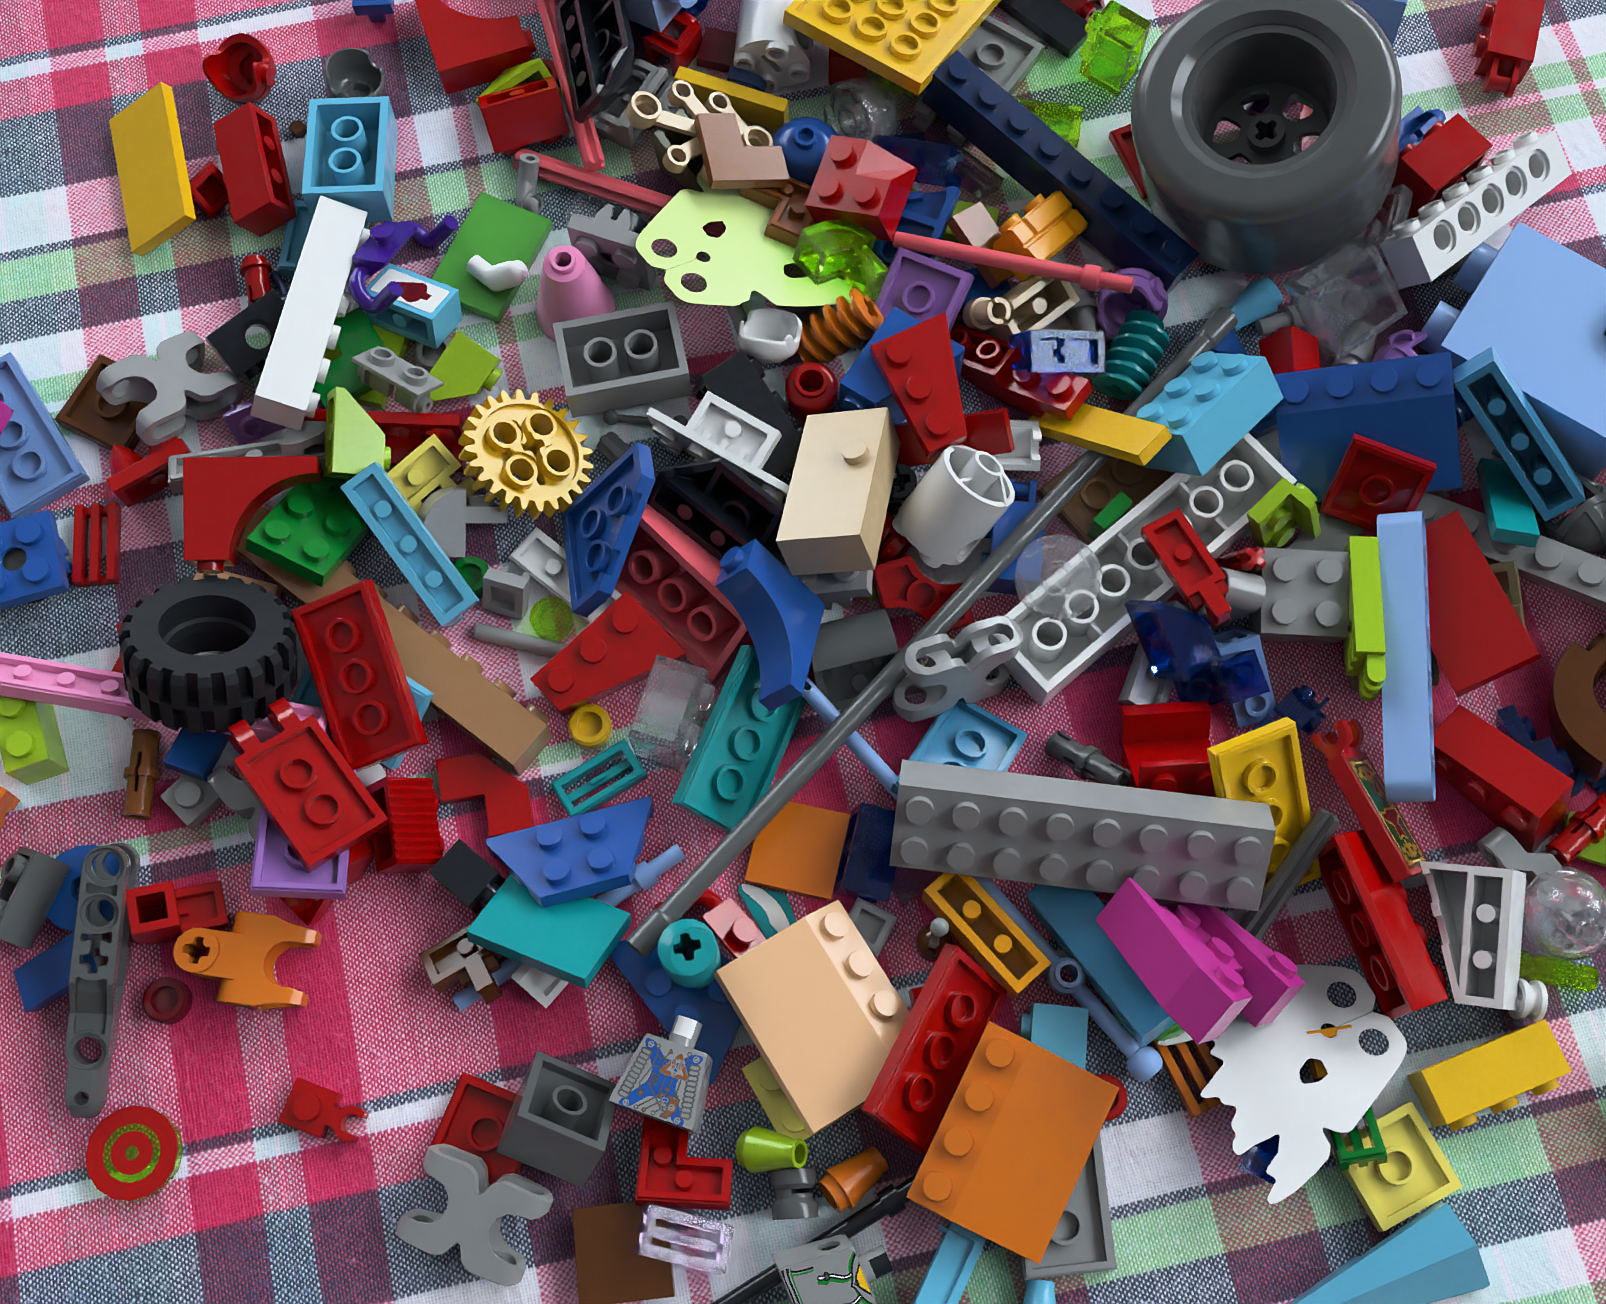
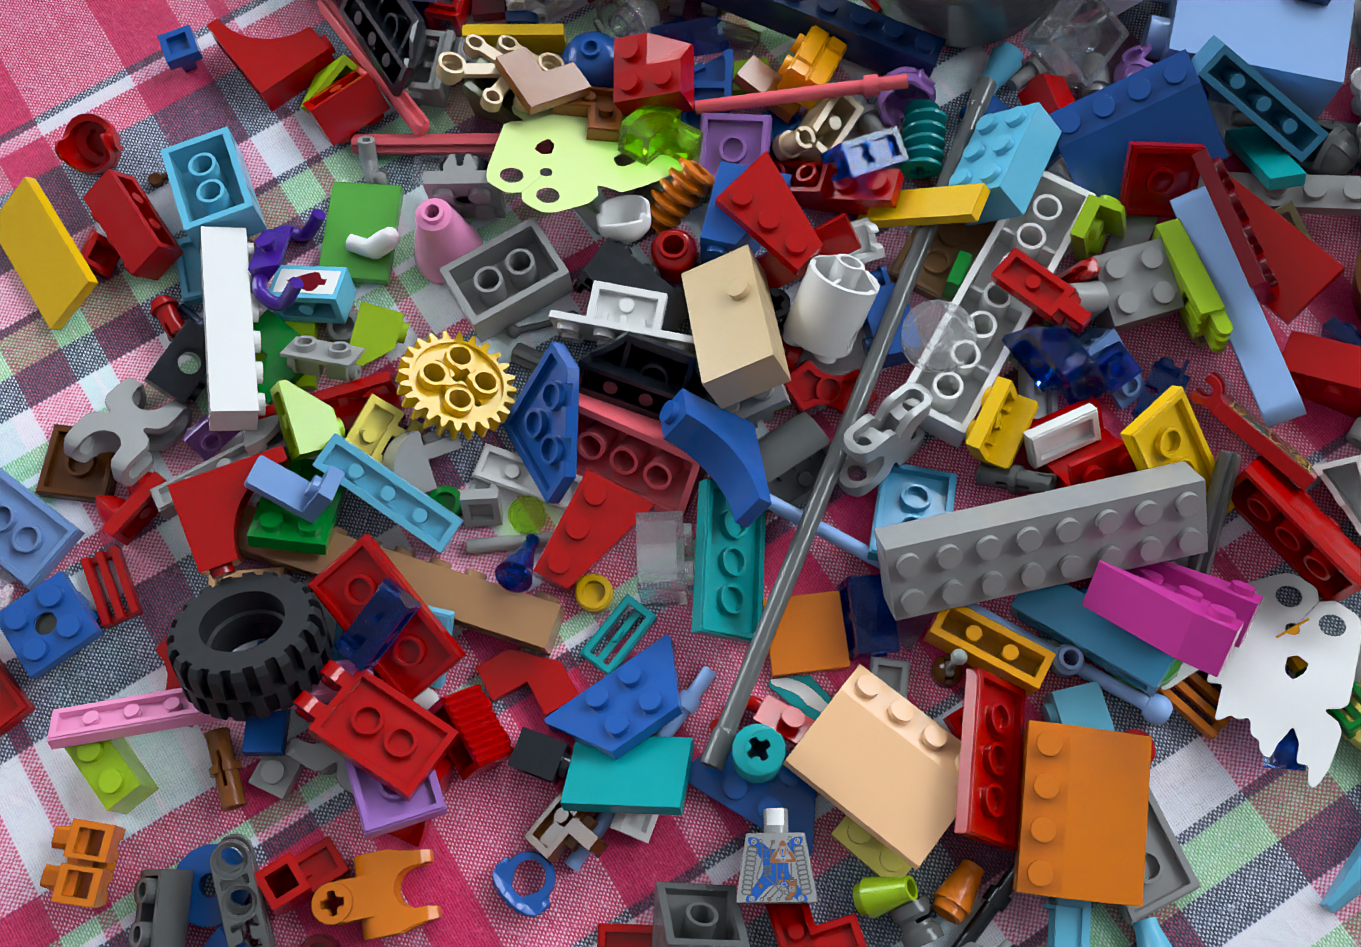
camera: 15 degrees left, 0 degrees up
(309, 506) = (293, 491): none -> medium blue bracket
(346, 679) = (378, 625): none -> clear blue hinge
(353, 74) = (188, 118): dark grey hair -> none
(400, 1027) = (531, 904): none -> blue piece
(513, 672) = (517, 570): none -> clear blue cone
(1090, 696) = (1000, 424): none -> yellow bracket
(1155, 731) = (1062, 435): none -> white tile
(1432, 560) = (1241, 236): none -> dark red plate

